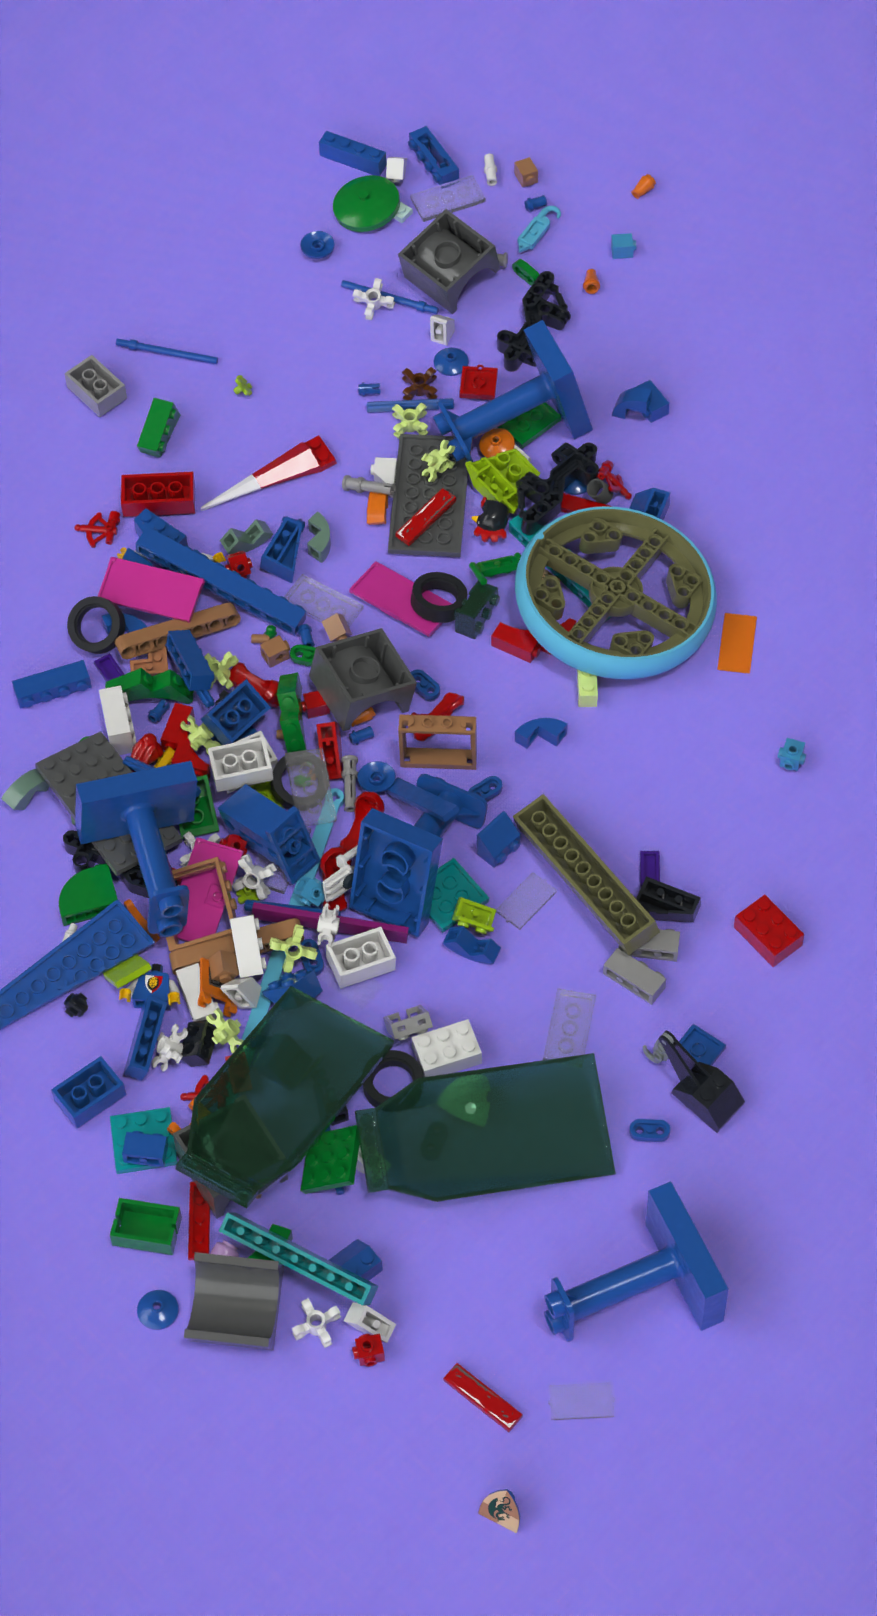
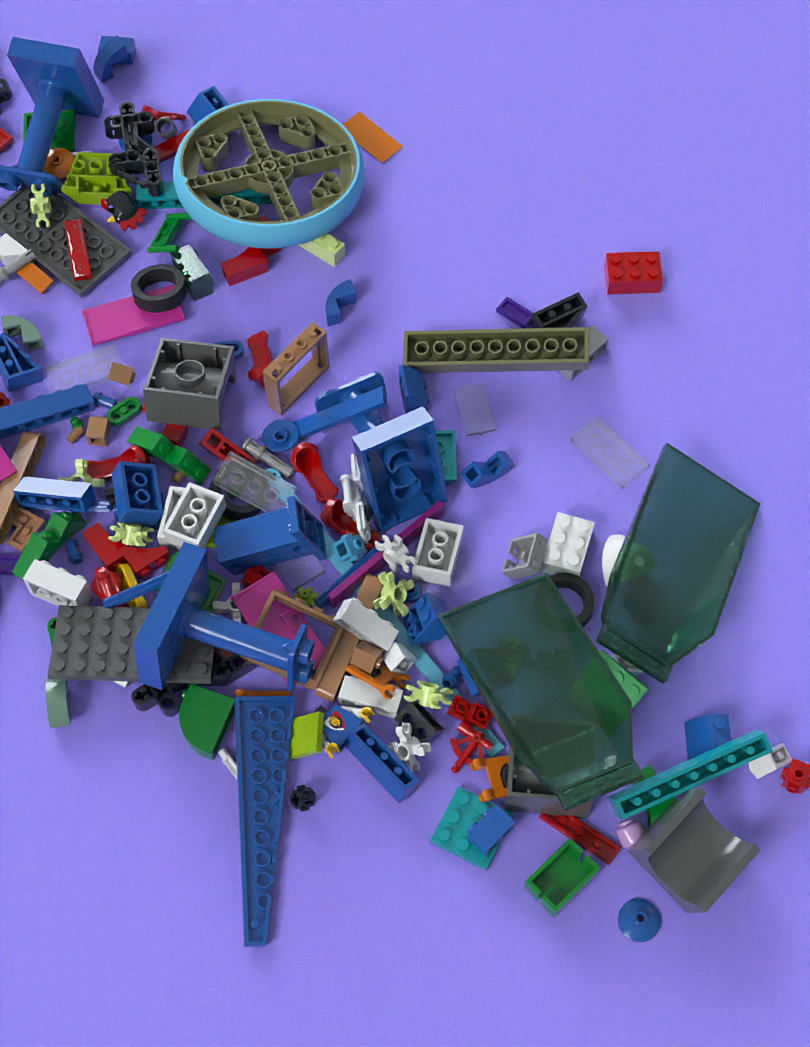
camera: 55 degrees left, 5 degrees up
(88, 1092) = (397, 841): blue brick -> none
(252, 883) = (297, 574): white pin -> none
(312, 1315) = (756, 803): white pin -> none
(360, 735) = (229, 426): blue pin -> none
(475, 915) = (465, 449): lime bracket -> none
(484, 787) = (355, 372): blue plate -> none
(634, 976) = (602, 380): light grey brick -> none
(649, 1129) = (739, 458): blue plate -> none
(701, 1086) = (734, 398): black slope -> none
(702, 1045) = (693, 383): blue tile -> none
(792, 754) = (499, 163): dark azure brick -> none

